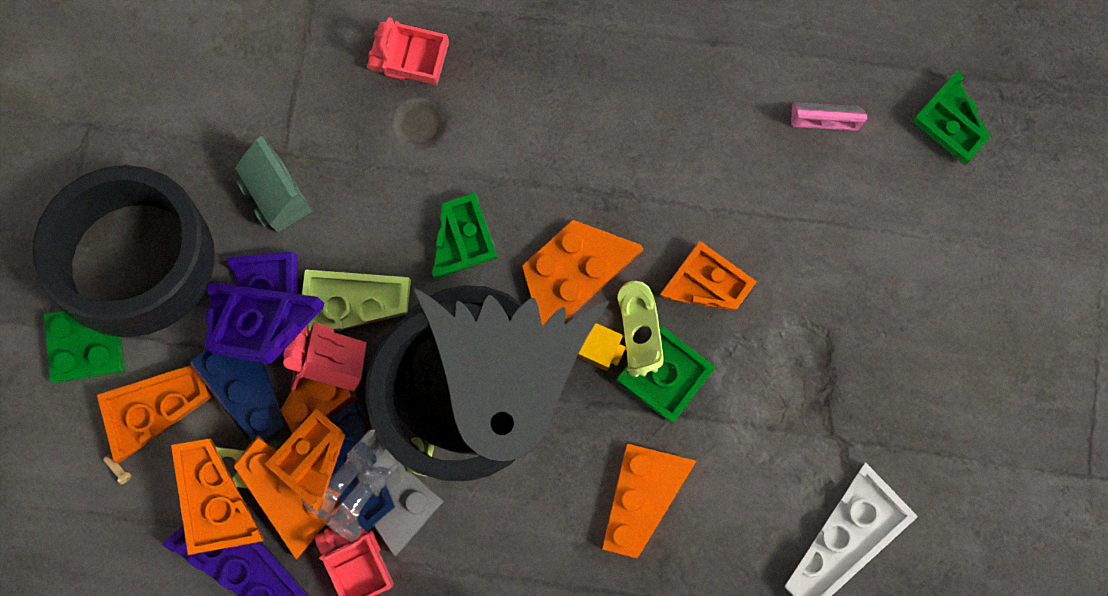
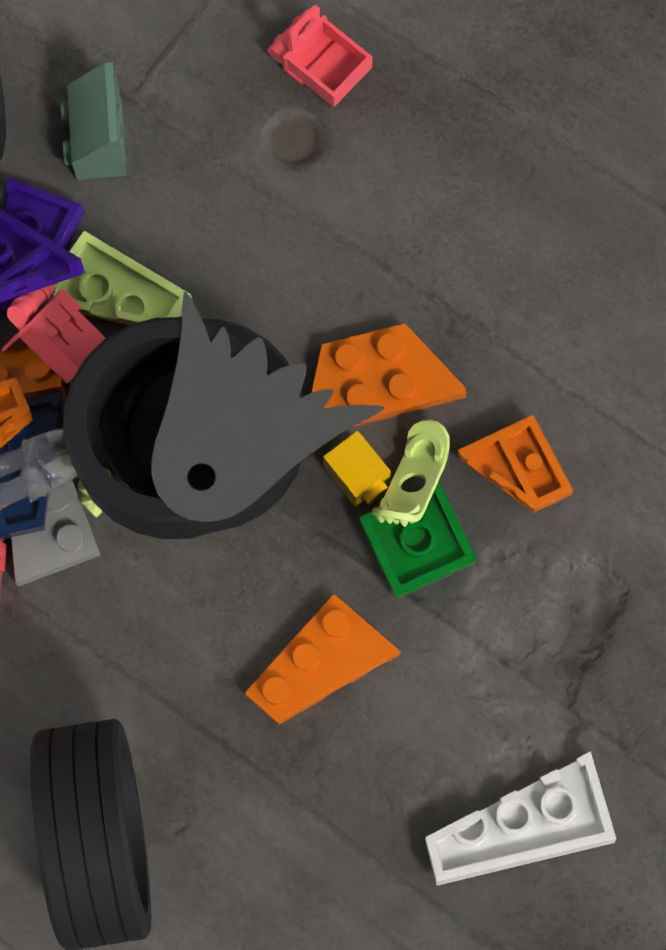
camera: 25 degrees right, 5 degrees down
(462, 237) = (272, 283): green wing -> none

